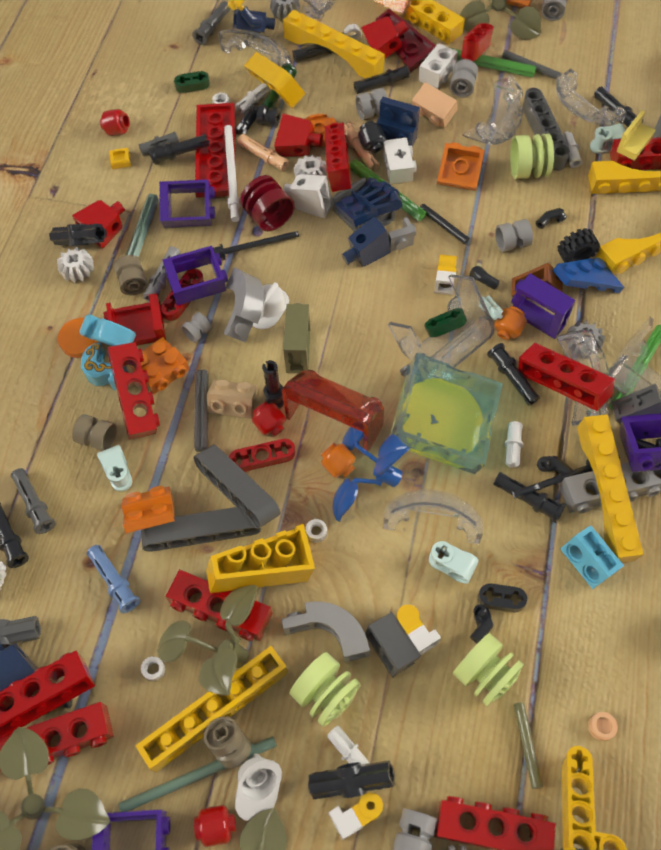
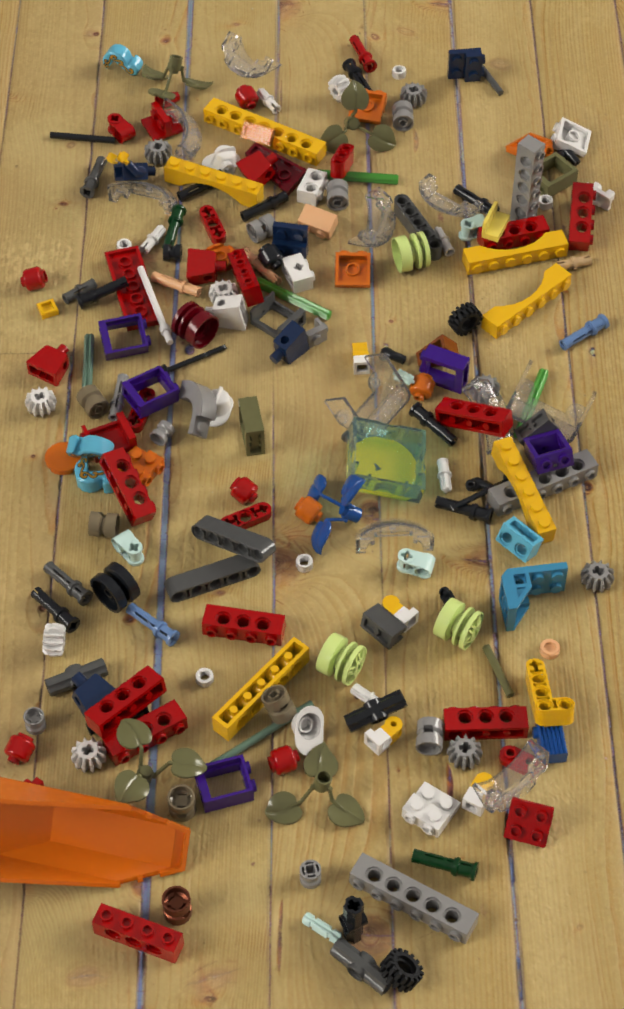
camera: 15 degrees left, 10 degrees down
(78, 234) = (37, 376): black piece -> none
(79, 522) = (115, 587): none -> black wheel
(148, 509) = (167, 568): orange plate -> none
(192, 82) = (92, 233): dark green beam -> none
(201, 413) = (185, 494): dark grey axle -> none
(218, 671) = (261, 654): olive plant -> none
(231, 398) = (208, 481): tan bracket -> none
(247, 120) = (153, 258): black axle -> none
(263, 563) = (271, 586): yellow wedge -> none
(273, 387) = (243, 466): black pin -> none
(275, 78) = (169, 218): yellow beam -> none
(318, 98) = (211, 231): none -> red beam
(334, 620) = (333, 618): light grey arch -> none
(335, 402) = (298, 463): clear red windscreen -> none
(351, 15) = (221, 154): none -> white piece
(369, 202) = (281, 312): dark blue plate -> none
(445, 224) = (350, 319): black bar -> none
(445, 322) = (369, 395): dark green beam -> none
(502, 591) = (459, 581): black beam -> none
(514, 235) = (410, 318): light grey wheel -> none
(539, 68) = (404, 176): dark grey bar -> none
(557, 214) = (443, 295): black arm -> none
(578, 632) = (525, 581): none -> dark azure bracket
(588, 273) = (477, 337): blue wing -> none

